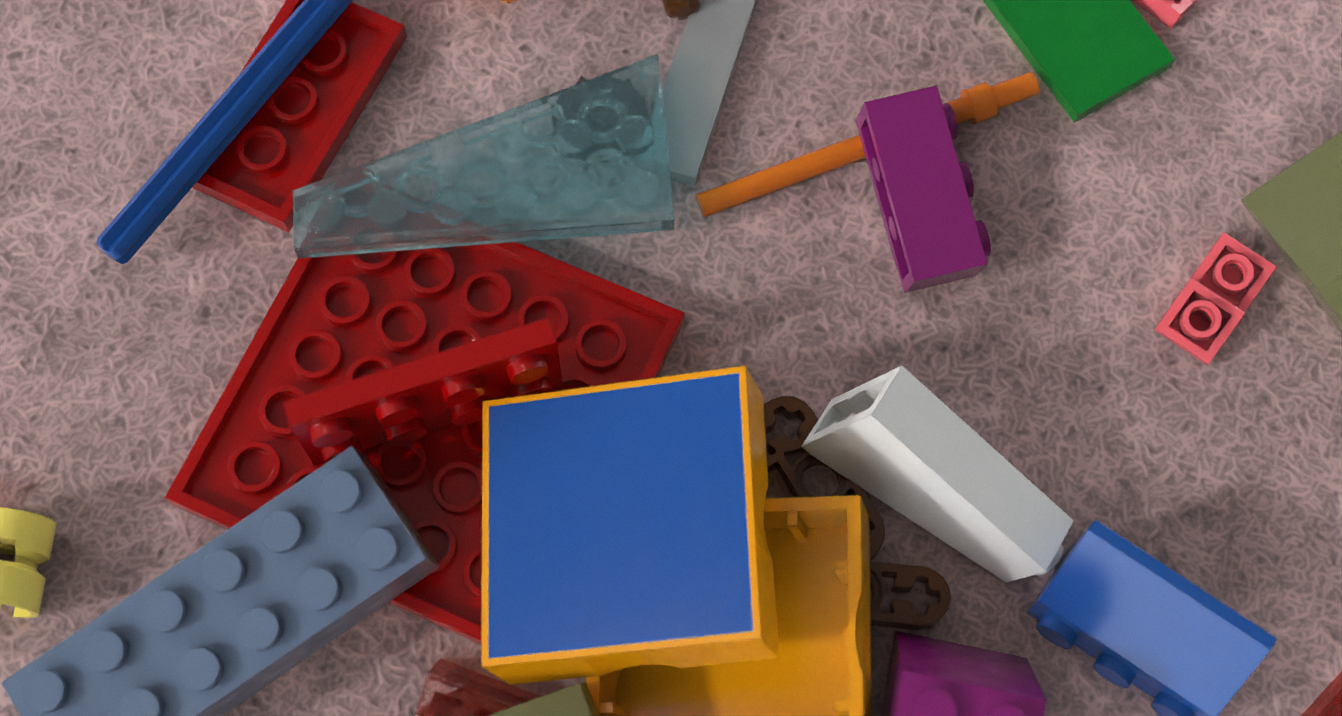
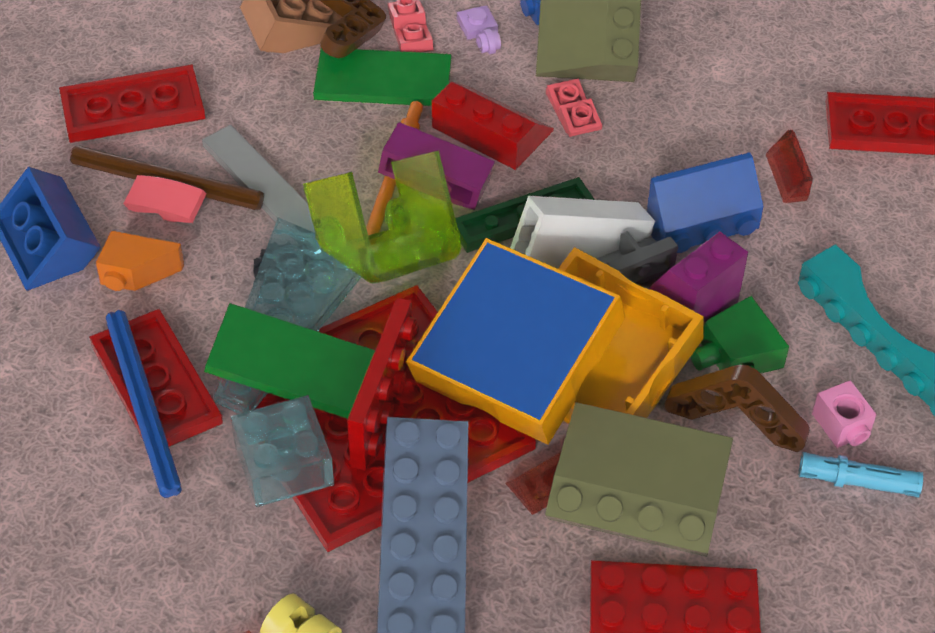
camera: 55 degrees left, 20 degrees down
(246, 341) = (282, 450): none -> clear light blue brick
(394, 241) = (288, 360): none -> green tile
(720, 249) = (418, 221): none -> clear neon green windscreen
(950, 588) = (642, 259): none -> dark grey panel
(962, 377) = (501, 220): none -> dark green plate
(1082, 202) = (487, 124): none -> red slope
(1273, 52) = (481, 25): none -> lavender plate

